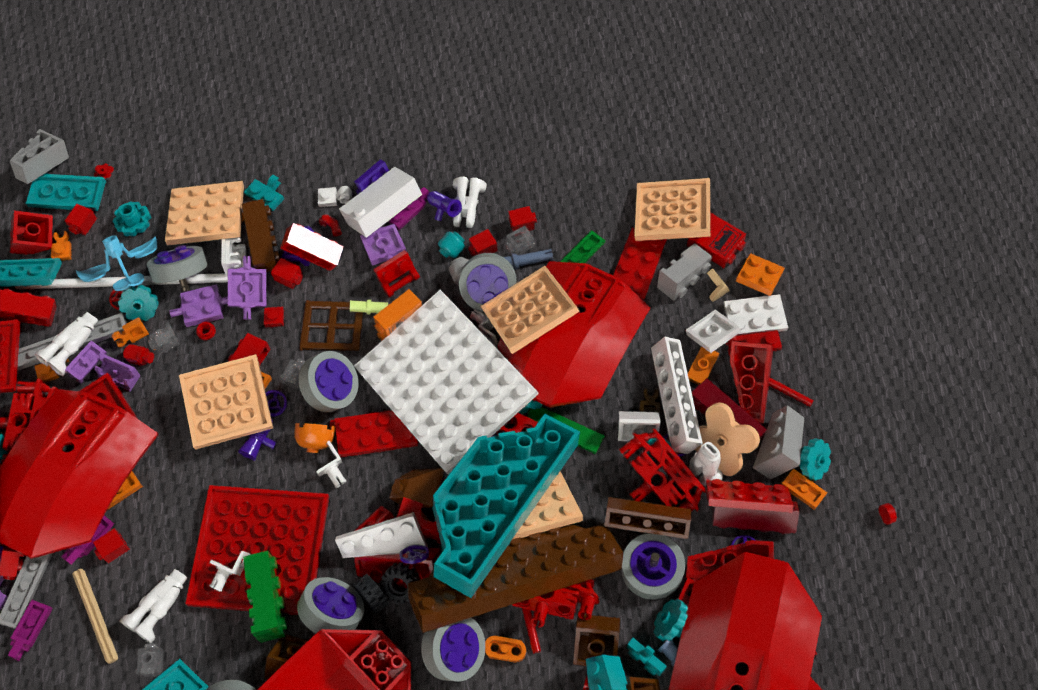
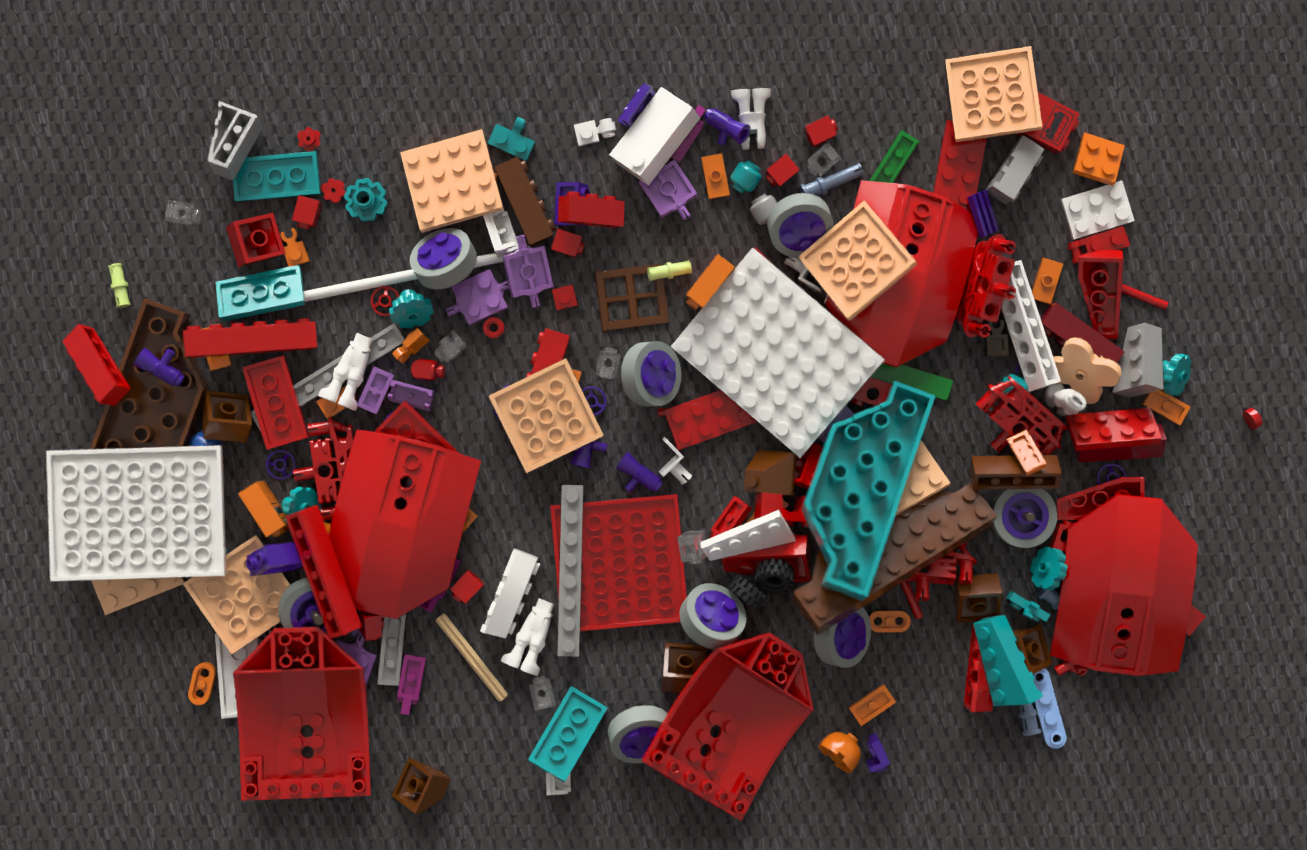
camera: 15 degrees left, 25 degrees up
(107, 209) = (331, 184): none -> red plant
(114, 249) = (348, 277): medium azure plant -> none
(147, 559) = (510, 593): none -> white wedge
(208, 547) = (570, 570): none -> light grey plate
(223, 571) = (594, 597): white bracket -> none
(264, 597) = (643, 616): green wedge -> none
(298, 471) = (639, 474): none -> dark purple piece
(313, 436) = (647, 434): orange cylinder -> none
(326, 543) = (690, 546): none -> clear brick
(332, 222) = (601, 167): red arm -> none
(393, 269) = (692, 225): red plate -> none
(414, 556) = (787, 559): dark purple piece -> none
(426, 243) = (715, 176): none -> orange plate
(636, 423) = (989, 364): white slope -> none
(644, 354) = (986, 285): none -> red piece
(654, 301) = (983, 213): none -> dark purple tile
(660, 498) = (1026, 452): none -> plate
(713, 331) = (1054, 240): white plate -> none
(721, 288) = (1054, 178): tan tile -> none

